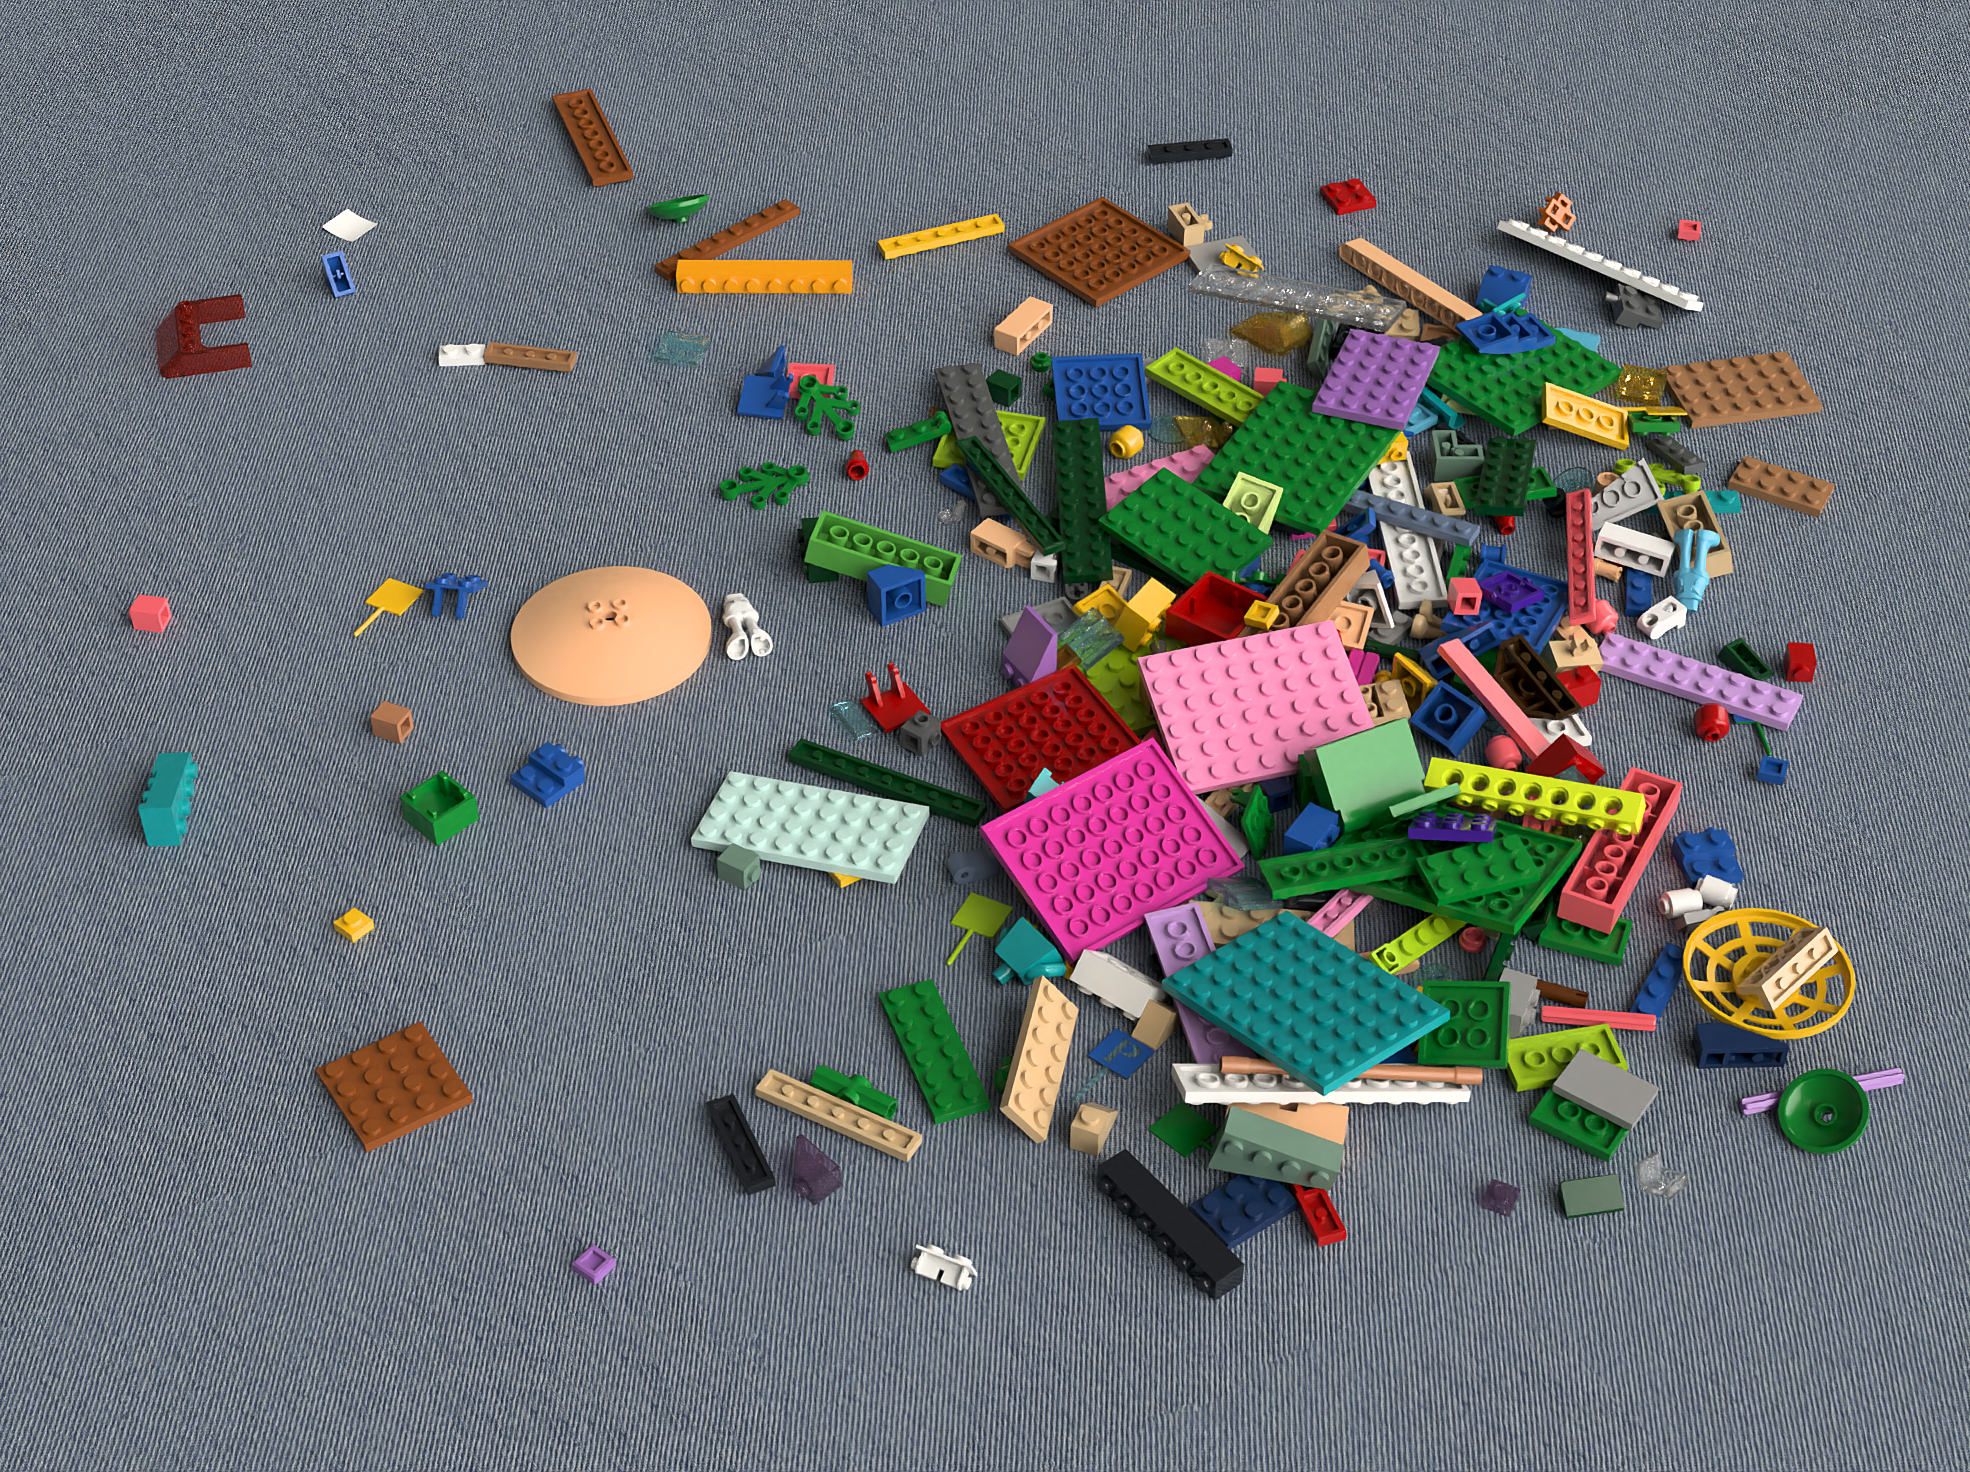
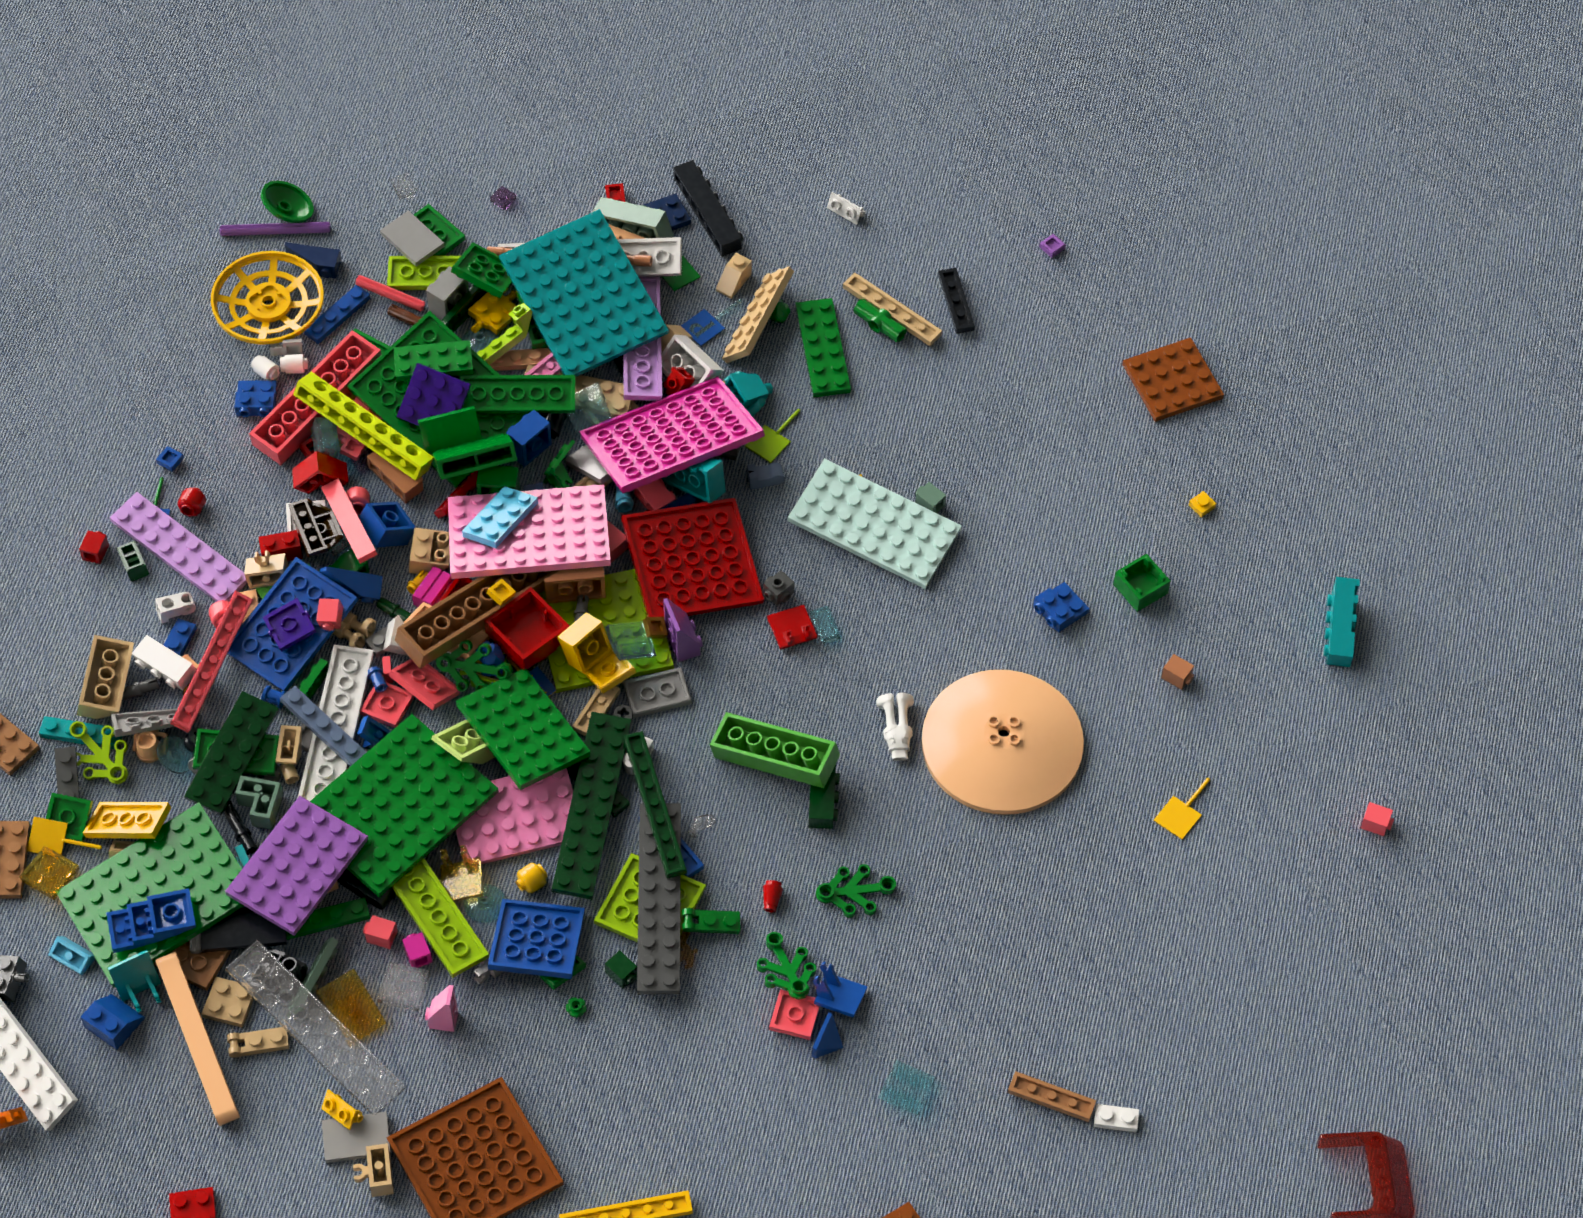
camera: 170 degrees left, 15 degrees up
(465, 585) = (1126, 804): blue plate -> none
(764, 276) = (814, 1175): light orange brick -> none
(814, 1172) = (913, 273): clear purple slope -> none
(887, 782) = (812, 556): dark green plate -> none
(895, 593) = (773, 713): blue slope -> none
(1001, 544) = (672, 776): light nougat hinge -> none
(1023, 326) = (580, 1055): light nougat brick -> none
(1129, 952) = (678, 380): none -> red brick
(1173, 323) = (443, 1011): none -> bright pink slope
(1300, 704) = (500, 517): none -> medium azure plate
(1414, 680) = (392, 565): yellow slope -> none
(1590, 1196) = (450, 189): slope -> none
(1692, 581) = (136, 627): medium azure piece -> none
(1789, 966) = (253, 281): tan fence -> none

